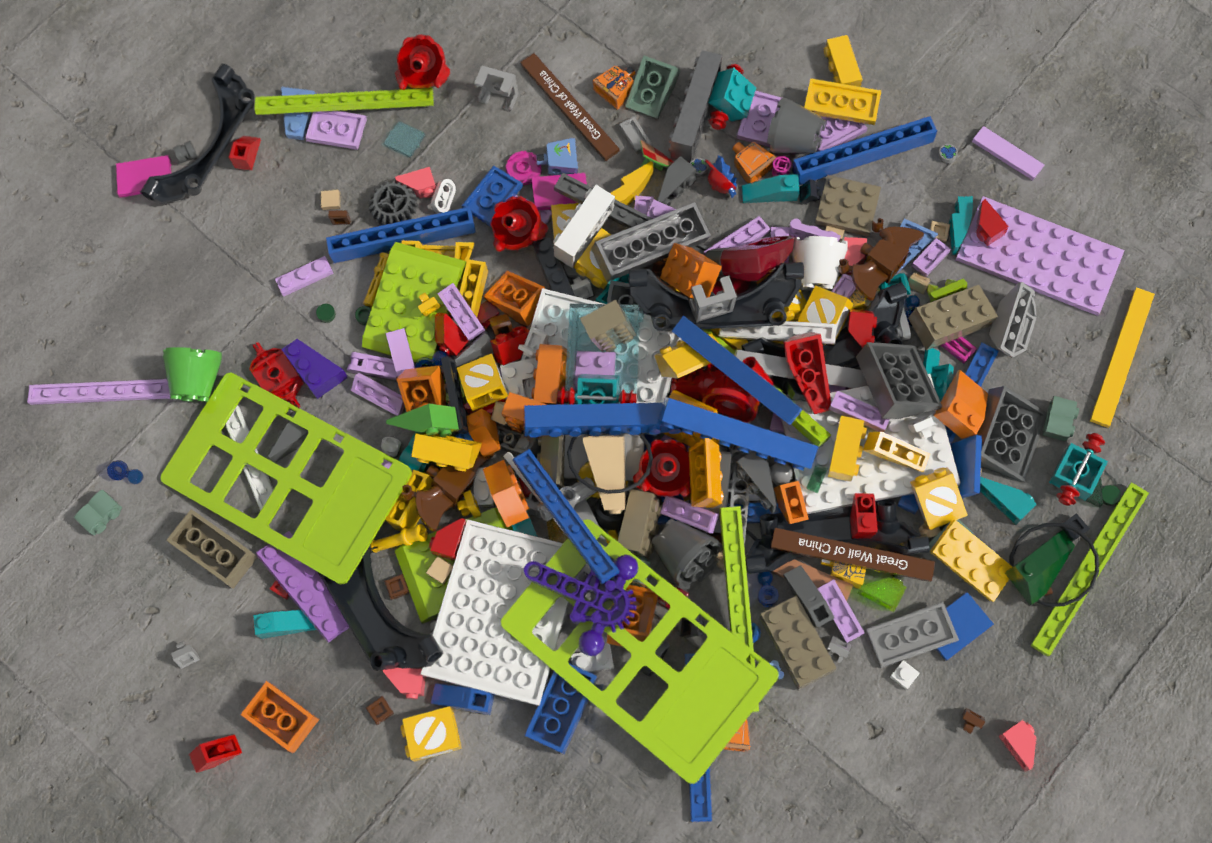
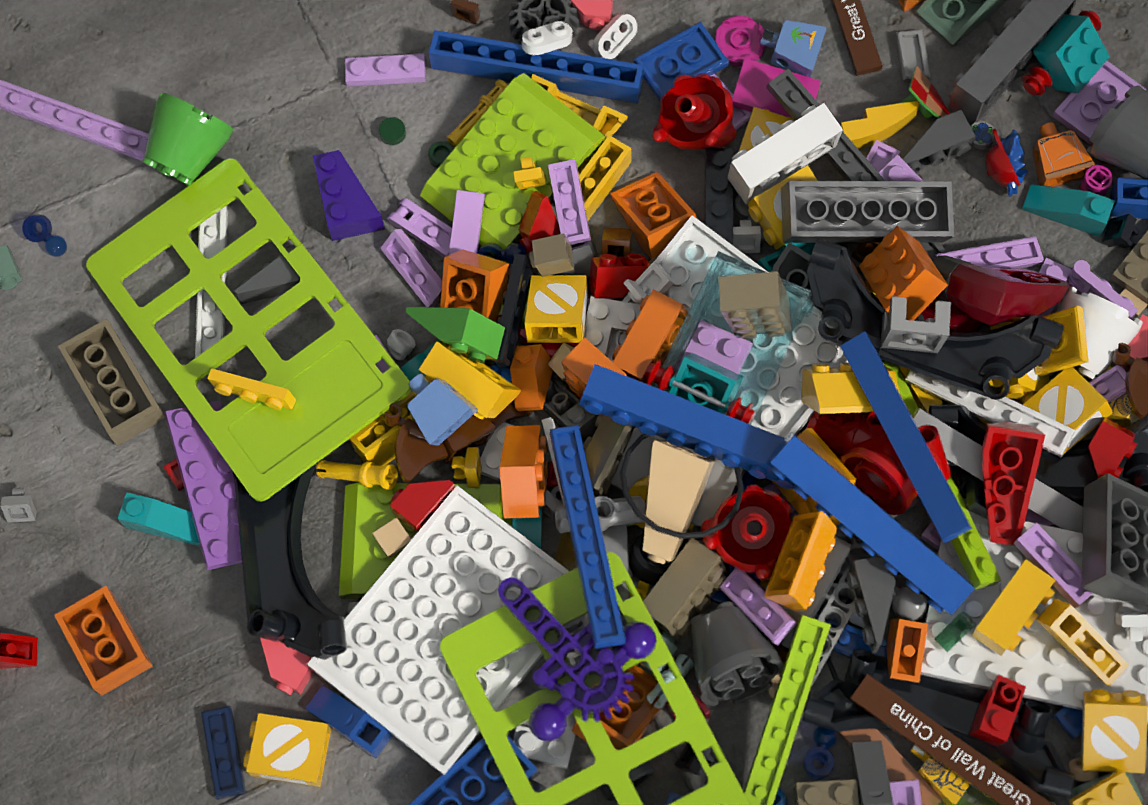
camera: 20 degrees right, 0 degrees up
(288, 381) = (303, 203): red plate -> none
(308, 514) = (251, 390): none -> yellow plate
(379, 710) = (235, 689): reddish brown tile -> none
(389, 754) = (223, 752): none -> dark blue tile
(397, 587) = (328, 535): reddish brown tile -> none
(401, 214) = (547, 38): none -> white plate
(435, 475) = (438, 408): none -> medium blue torso
(464, 349) = (552, 255): none -> dark tan brick
(486, 312) = (605, 216): dark red sticker -> none
(650, 594) = (668, 676): none -> light aqua pin
(812, 272) = (1072, 344): none -> yellow tile

